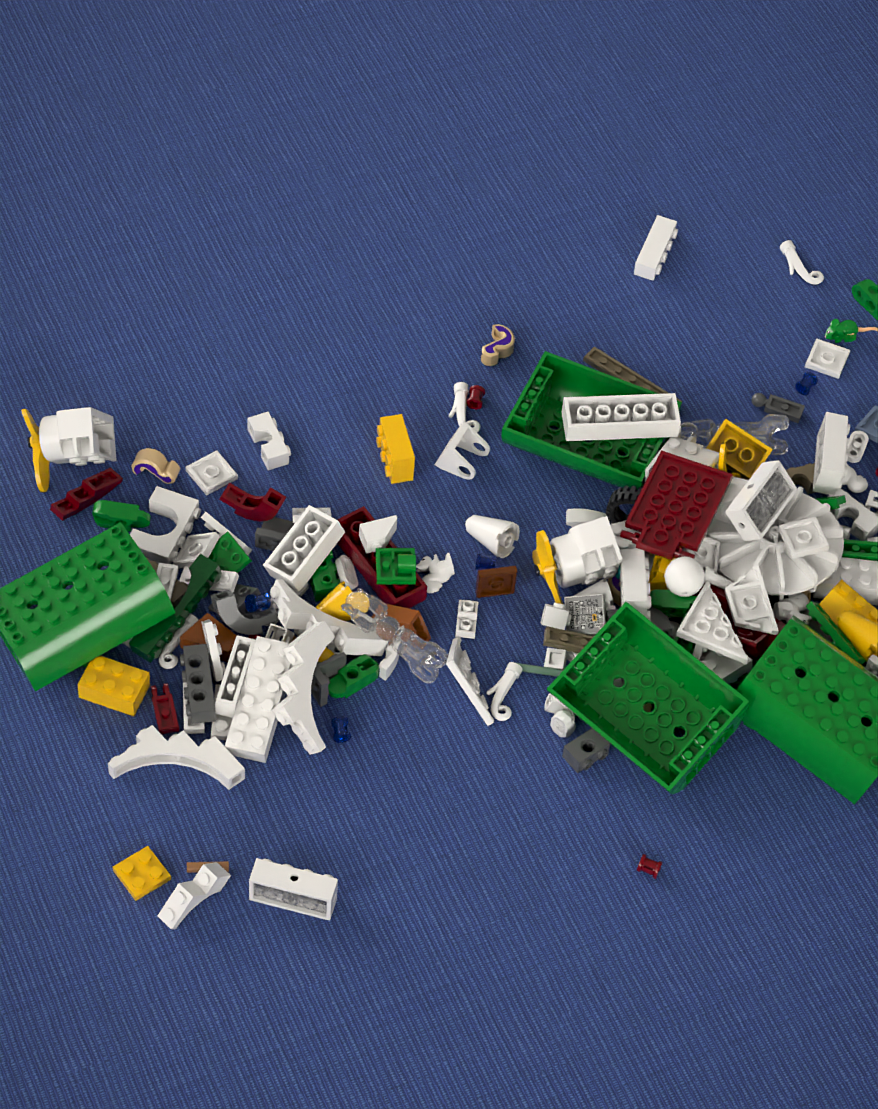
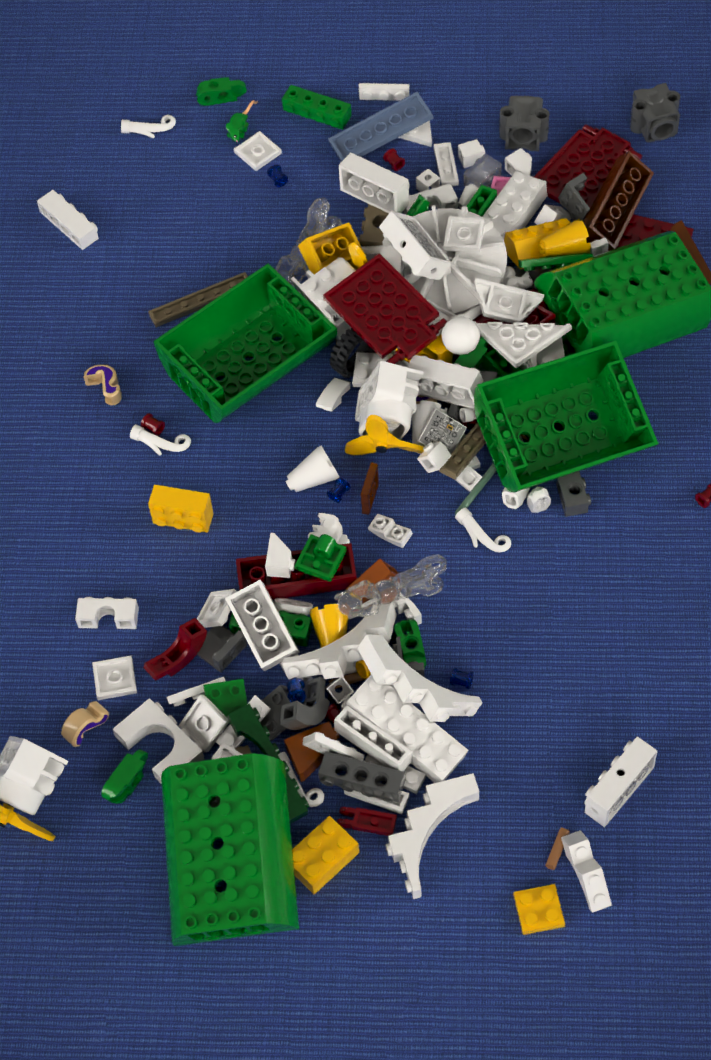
camera: 55 degrees left, 5 degrees up
(88, 493) = (81, 799): dark red slope -> none
(451, 459) = (204, 464): white hose -> none
(459, 665) = (457, 552): white tile -> none
(620, 417) = (267, 311): white brick -> none
(779, 406) = (291, 205): dark grey plate -> none

